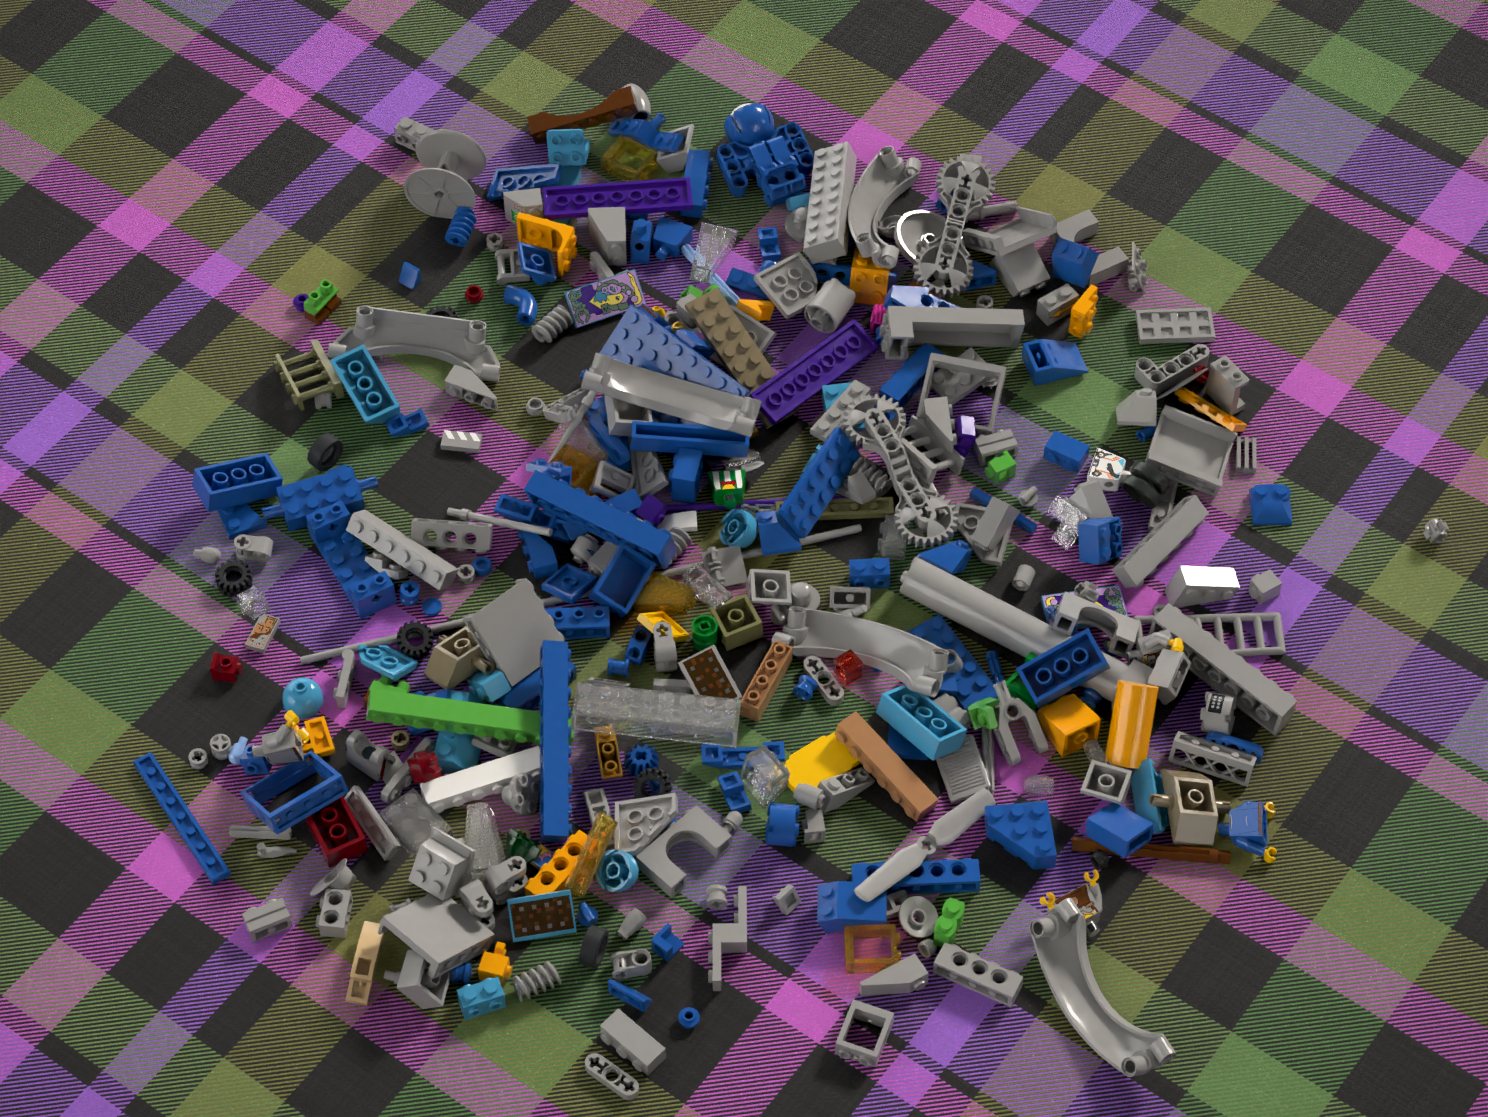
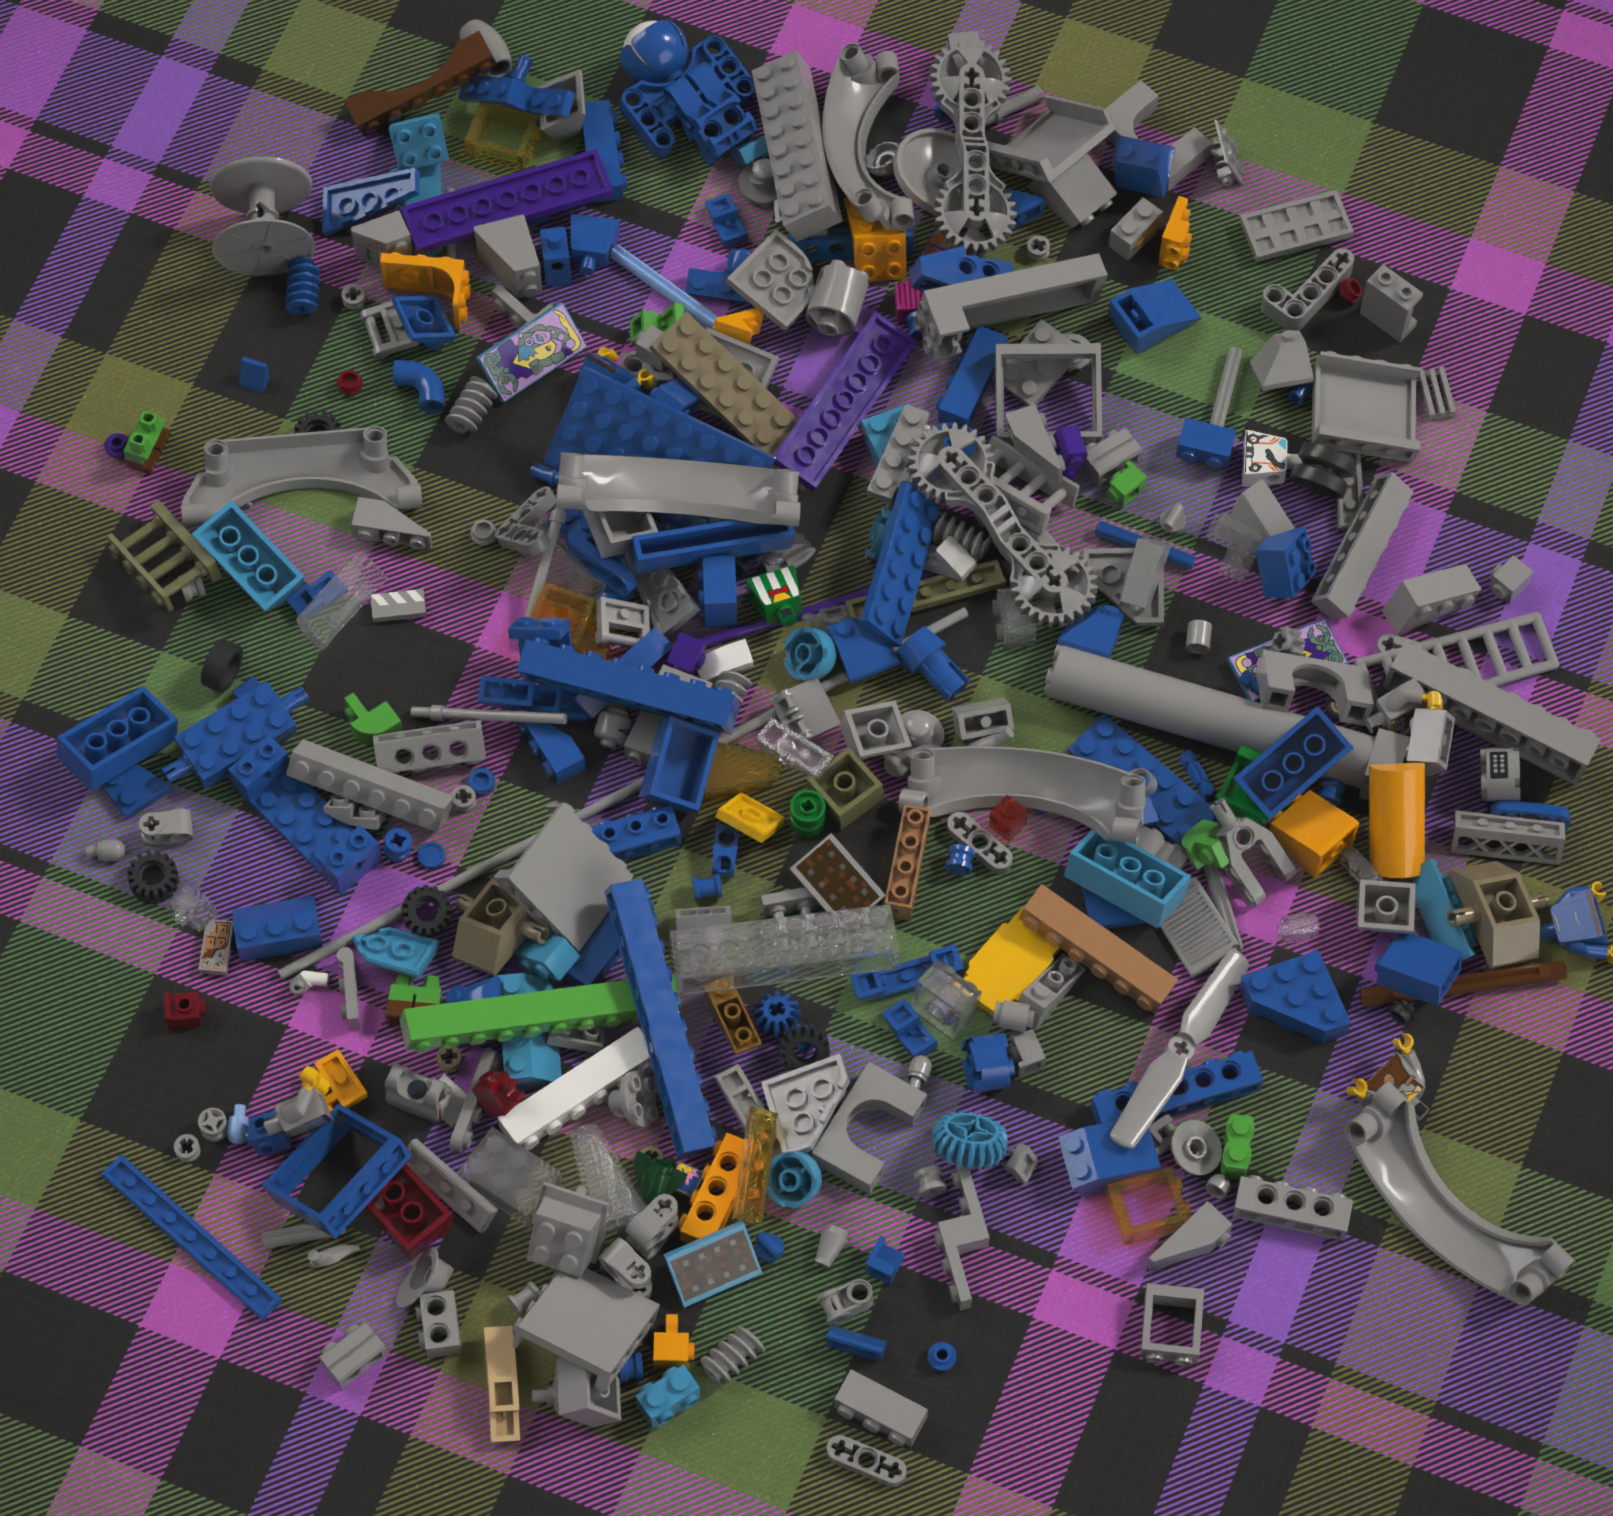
camera: 15 degrees left, 10 degrees up
(303, 697) = (300, 1029): dark azure cylinder -> none
(307, 630) = (277, 928): none -> blue slope
(318, 667) = (306, 980): none -> arm
(409, 131) = (194, 159): light grey brick -> none
(411, 509) = (375, 722): none -> bright green brick
(421, 428) = (340, 600): none -> clear piece
(569, 583) = (607, 781): blue plate -> none
(593, 947) = (793, 1291): black tyre -> none
(664, 648) = (765, 852): light grey piece -> none
(711, 250) = (653, 246): clear slope -> none
(752, 873) = (969, 1140): none -> dark azure gear
(821, 546) = (925, 654): none -> blue piece
(869, 573) = (998, 677): blue brick -> none
(1094, 418) = (1226, 386): none -> light grey axle
(1182, 383) = (1332, 313): flat silver sticker -> none
(1211, 410) = (1377, 341): light orange wing -> none
(1270, 504) = (1486, 459): blue slope -> none

